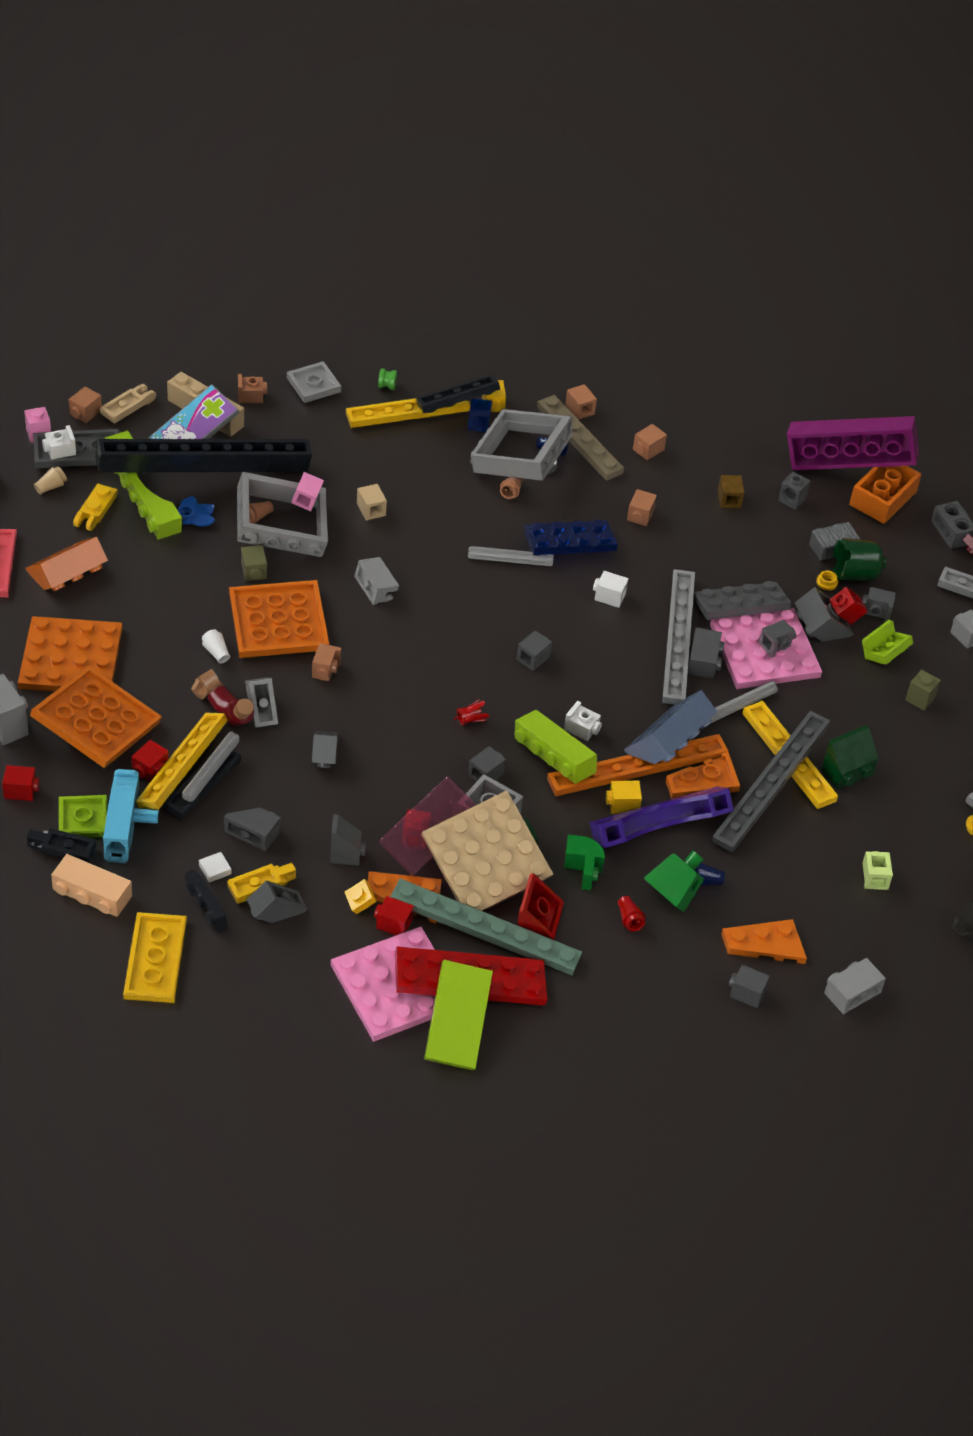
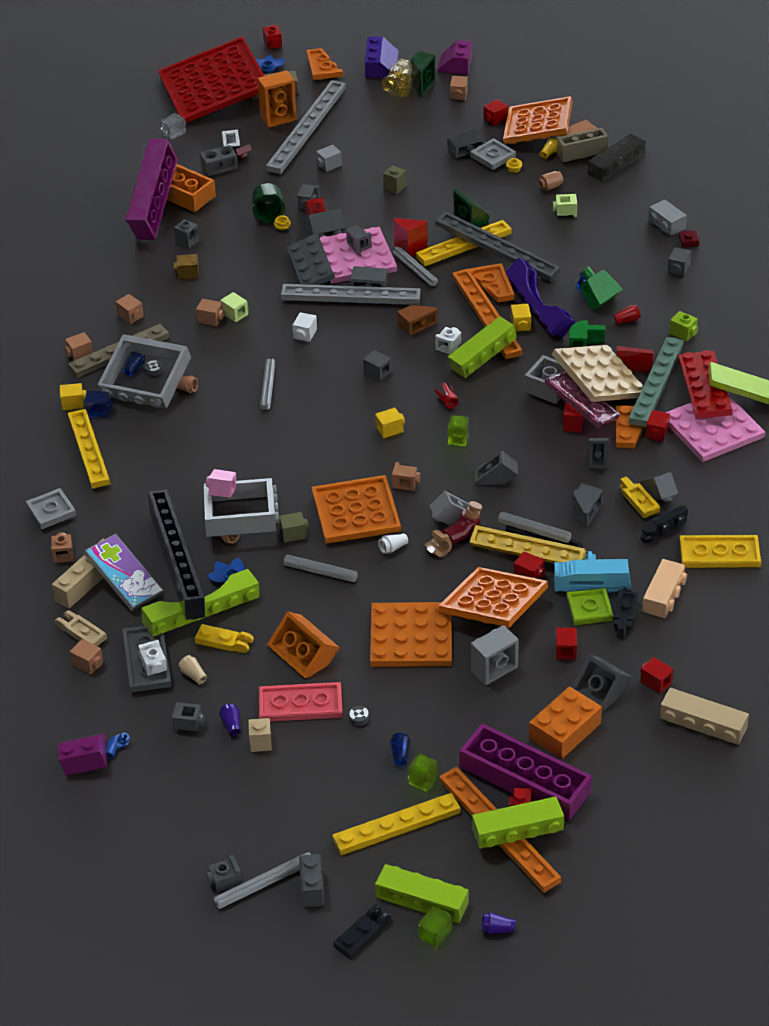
camera: 85 degrees left, 5 degrees down
(37, 421) = (117, 685): bright pink brick -> none
(188, 586) = (320, 568): none -> light grey axle
(215, 867) = (626, 526): white tile -> none
(360, 896) = (641, 444): yellow plate -> none
(371, 502) = (210, 460): tan brick -> none
(375, 580) = (306, 455): light grey hinge -> none
(387, 379) = (48, 461): bright green wheel -> none
(402, 715) = (458, 430): none -> clear neon green brick
(425, 654) = (389, 422): none -> yellow brick
(458, 393) = (83, 407): black plate -> none
(487, 763) = (503, 385): dark grey brick -> none
(570, 537) = (247, 349): clear blue plate -> none
(602, 972) = (683, 326): none -> lime brick
(623, 691) = (416, 318): none -> dark orange slope
(651, 529) = (234, 307): none -> yellowish green brick
(673, 729) = (456, 290): sand blue slope -> none
(769, 939) = (634, 257): orange wing -> none
(782, 690) = (410, 235): none -> red slope
(813, 1011) = (689, 238): none -> dark red plate
(824, 539) = (240, 216): dark grey brick -> none
(885, 643) = (350, 195): lime bracket -> none
(936, 859) = (550, 180): none -> nougat brick

